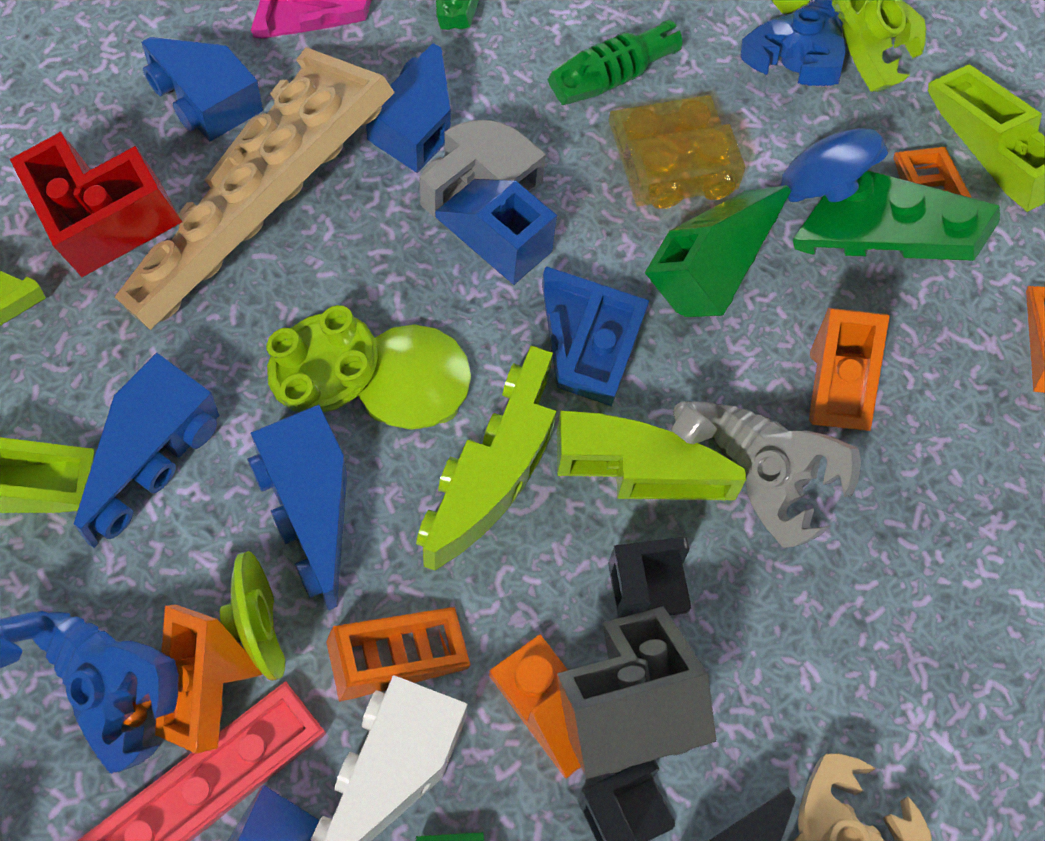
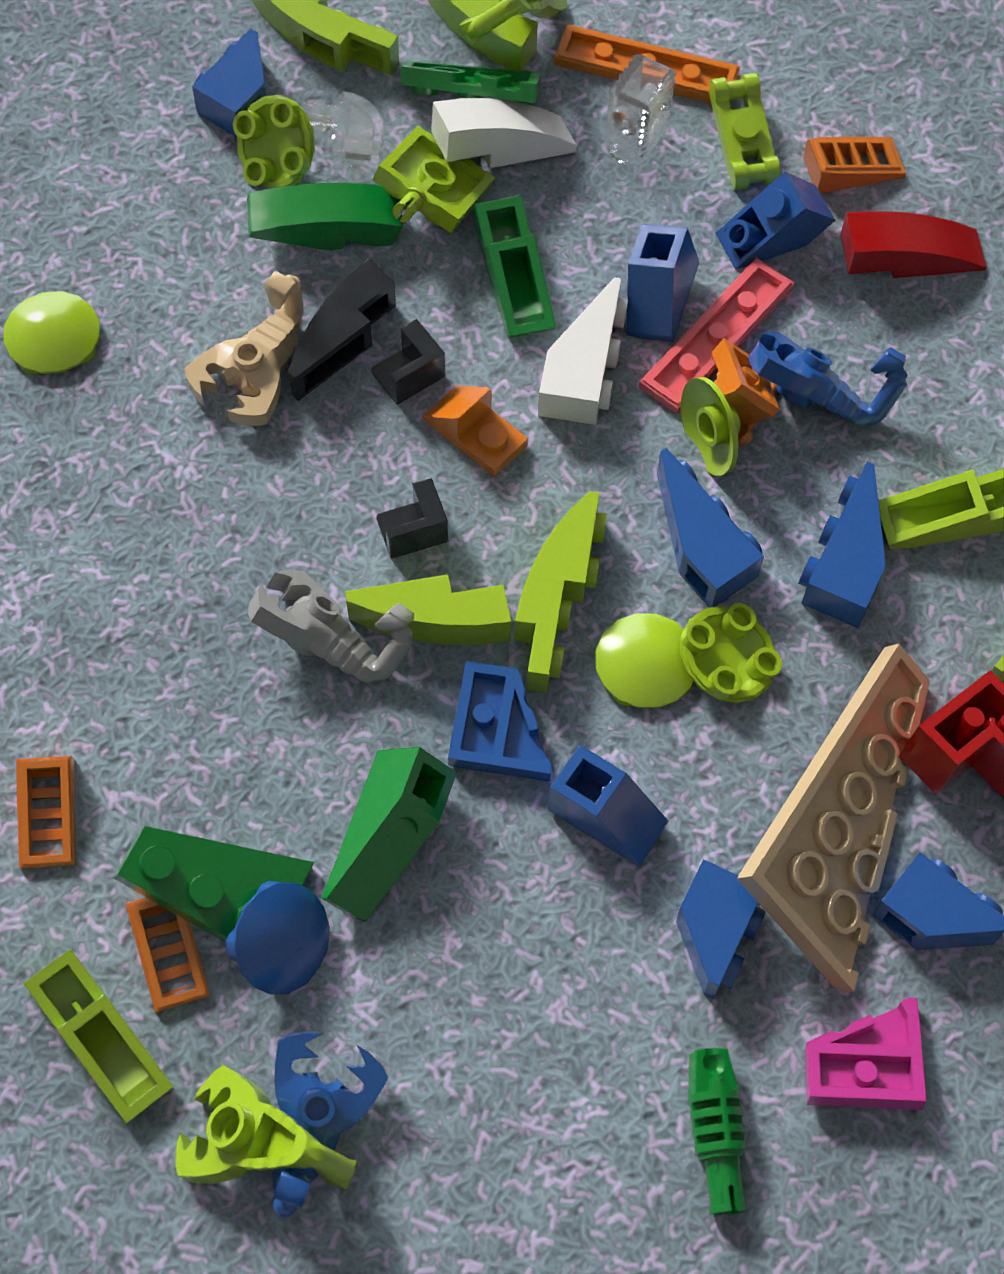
camera: 175 degrees right, 0 degrees up
(356, 684) = (608, 420): orange slope -> none
(480, 152) = (633, 882): light grey brick -> none
(612, 63) = (525, 1037): green hinge -> none
(640, 701) = (401, 410): dark grey brick -> none
(677, 151) = (442, 942): clear yellow plate -> none
(848, 368) = (258, 721): orange slope -> none

